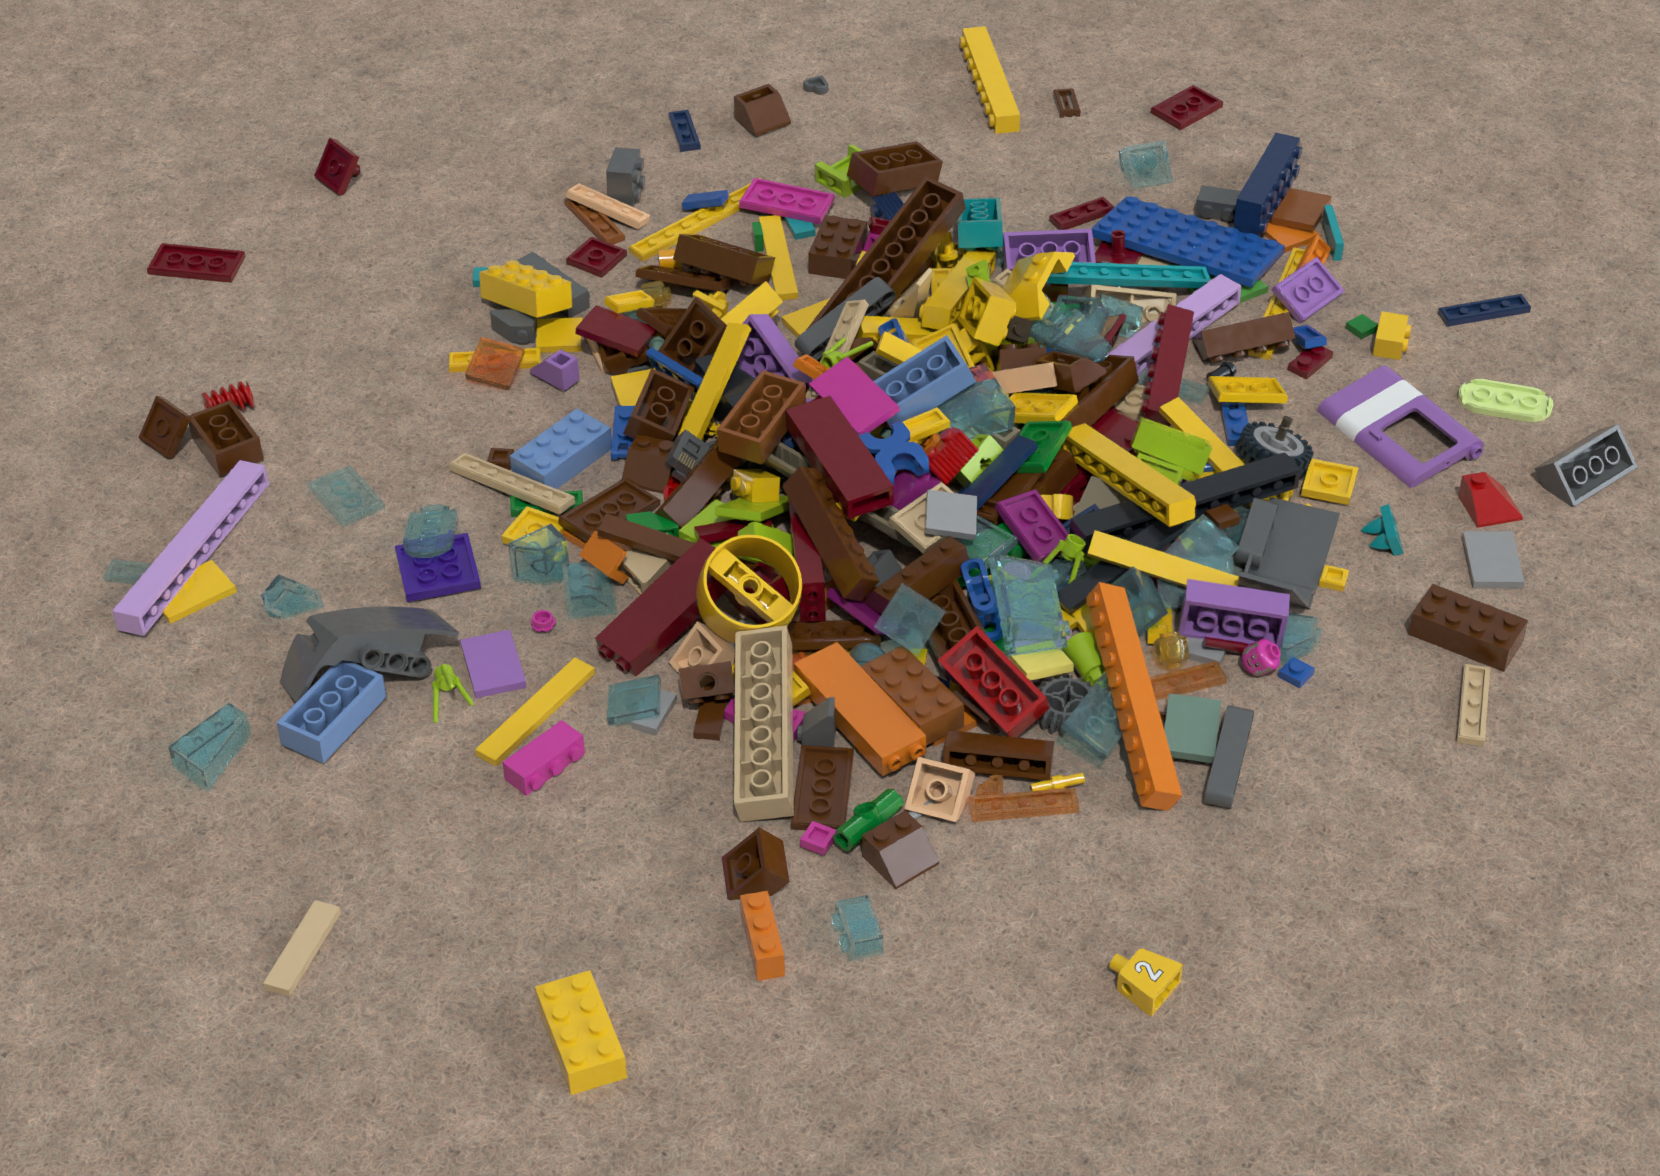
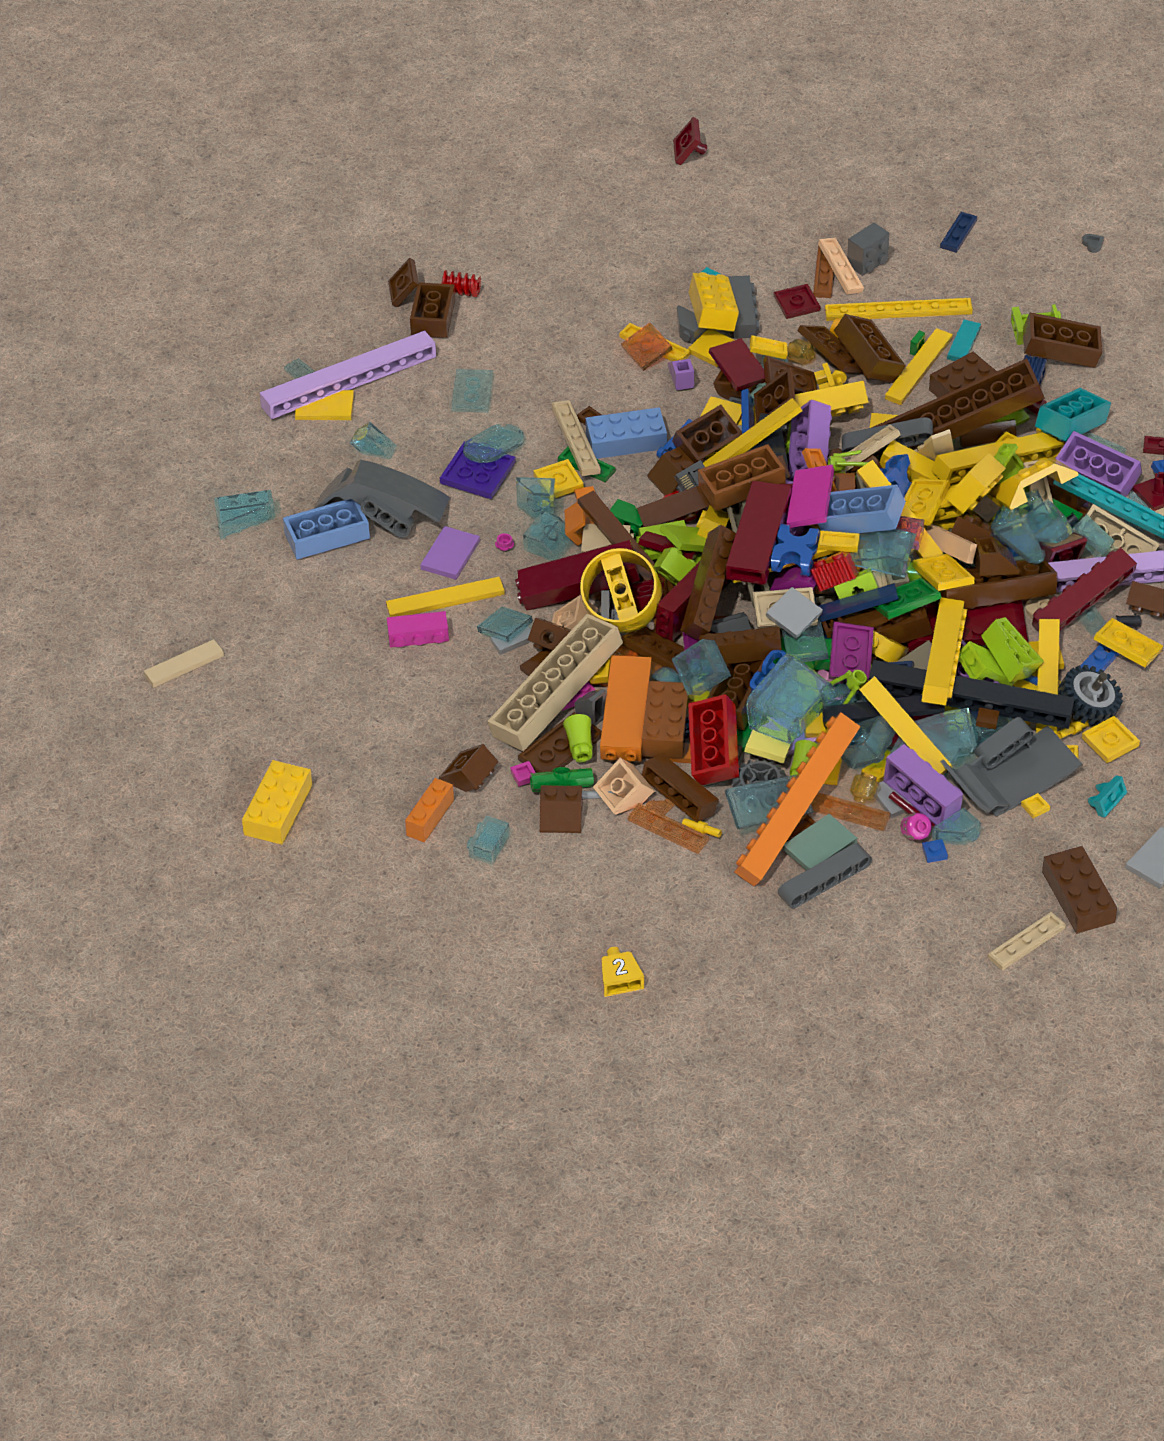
camera: 40 degrees right, 5 degrees up
(196, 262) = (537, 169): dark red tile -> none
(446, 680) = (411, 547): lime plant -> none
(616, 500) = (631, 488): reddish brown tile -> none
(705, 200) = (911, 295): blue tile -> none
(761, 110) = (1024, 243): reddish brown slope -> none
(787, 200) = (966, 325): dark pink tile -> none
(844, 764) = (579, 736): none -> lime plant
(944, 255) = (1027, 421): yellow hips -> none

